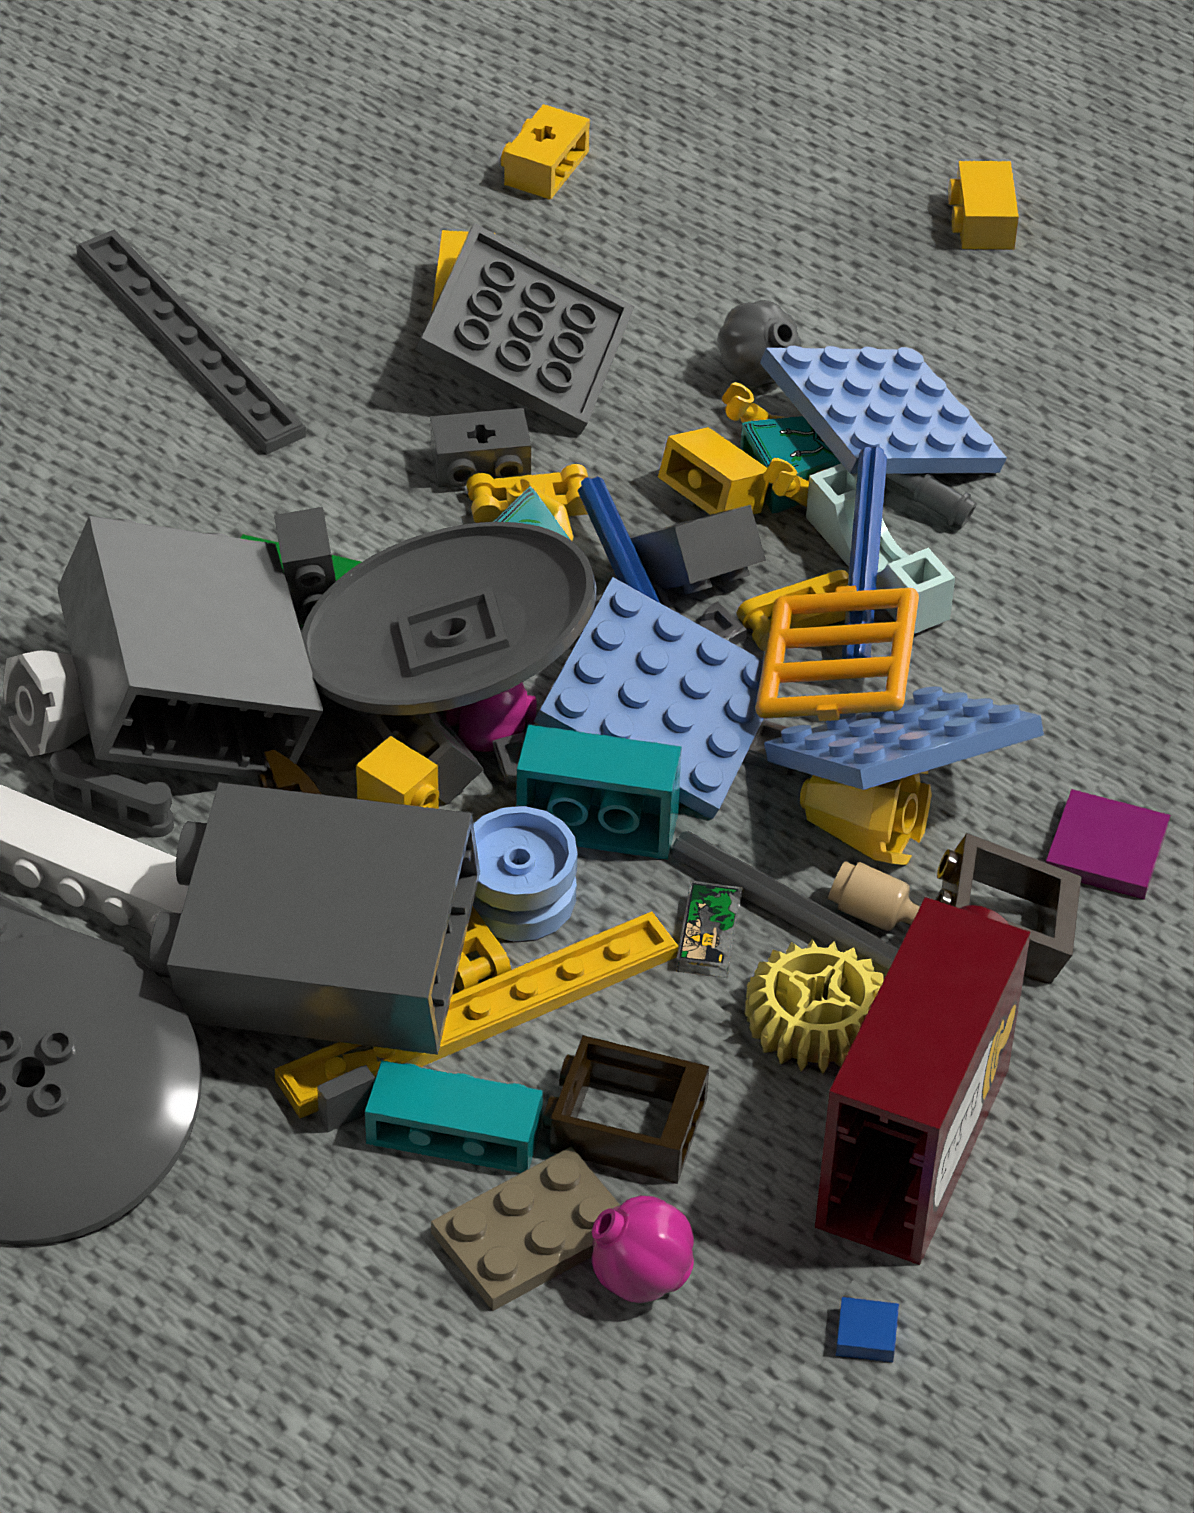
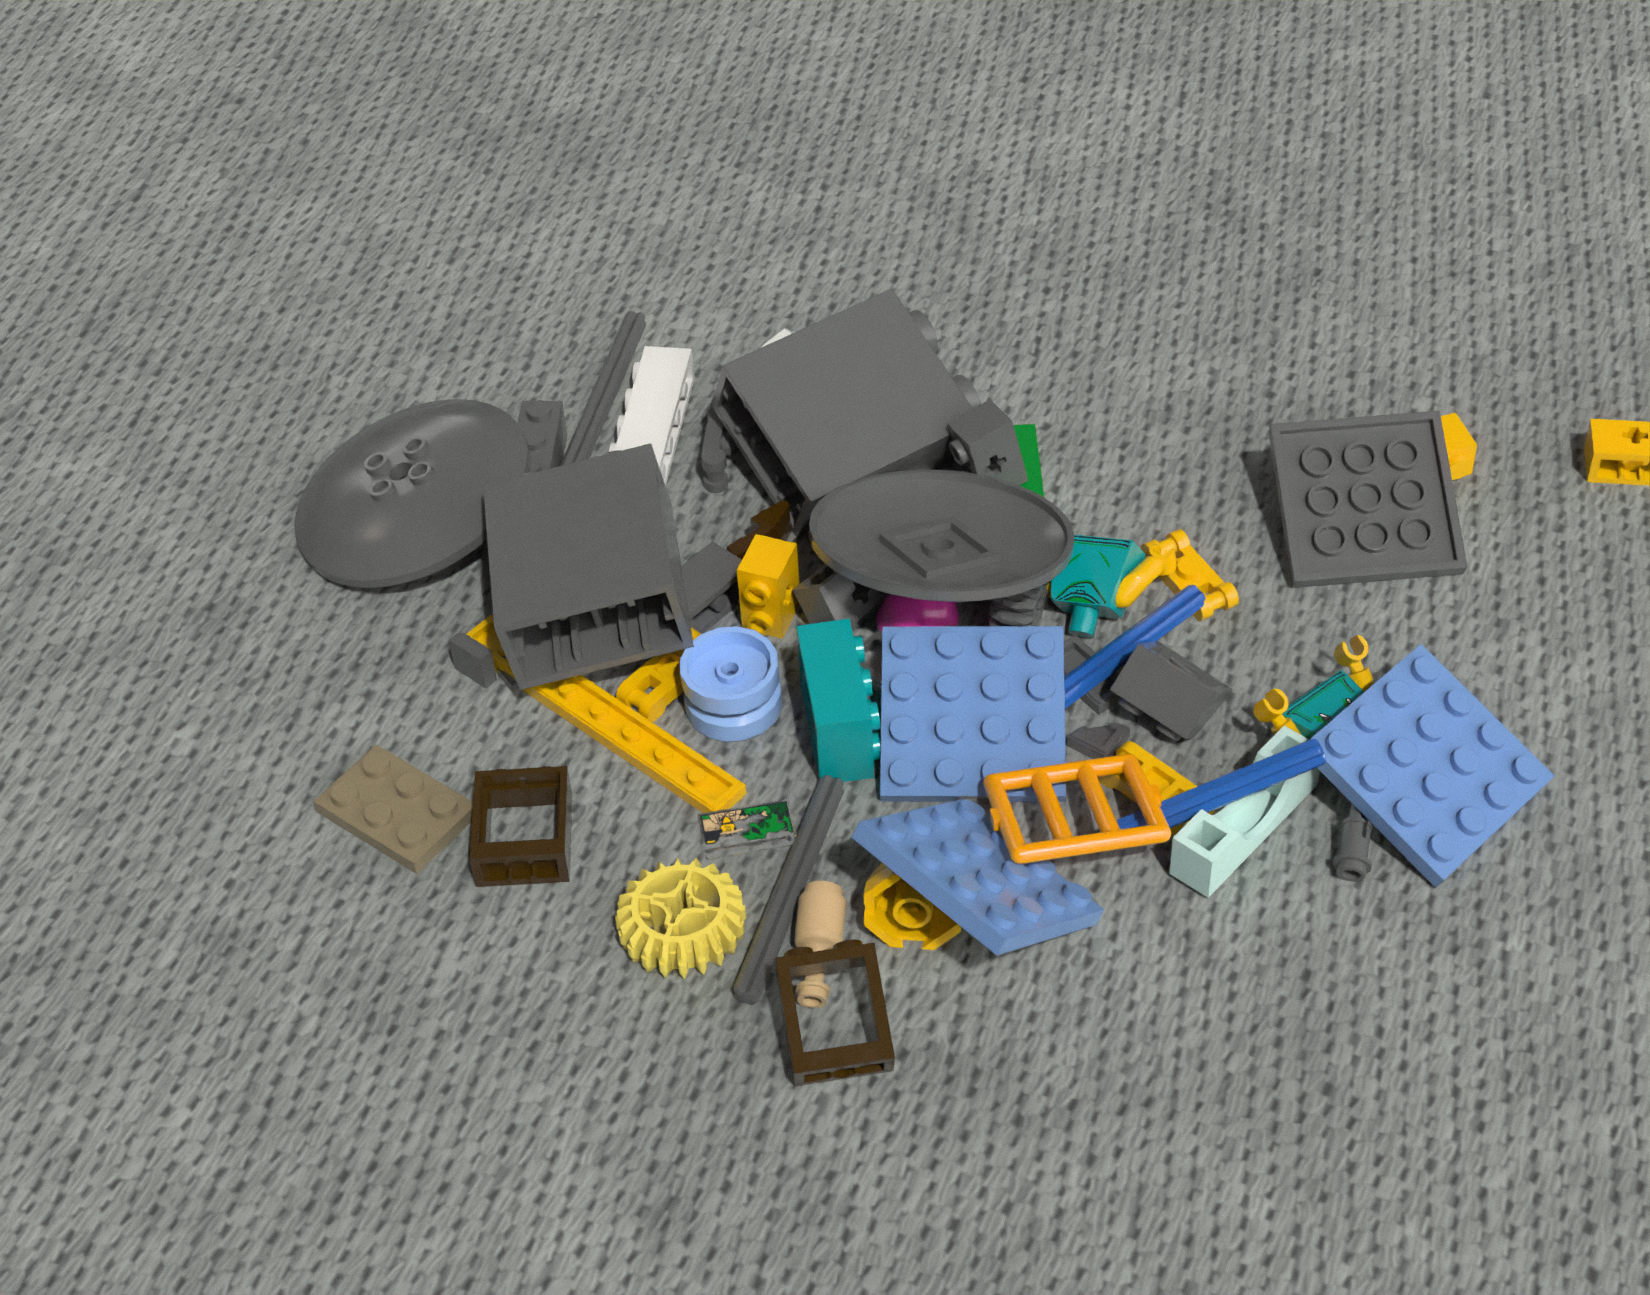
camera: 75 degrees right, 0 degrees up
(191, 342) = (1241, 331): dark grey tile -> none
(454, 1116) = (478, 721): teal brick -> none
(480, 443) = (1218, 524): dark grey brick -> none
(642, 1249) = (368, 865): dark pink plant -> none
(712, 472) = (1280, 662): yellow brick -> none
(748, 333) = (1479, 638): dark grey plant -> none
(867, 1329) = (357, 1046): blue tile -> none
(921, 1079) = (562, 973): dark red brick -> none
(1109, 843) = (979, 1086): magenta tile -> none

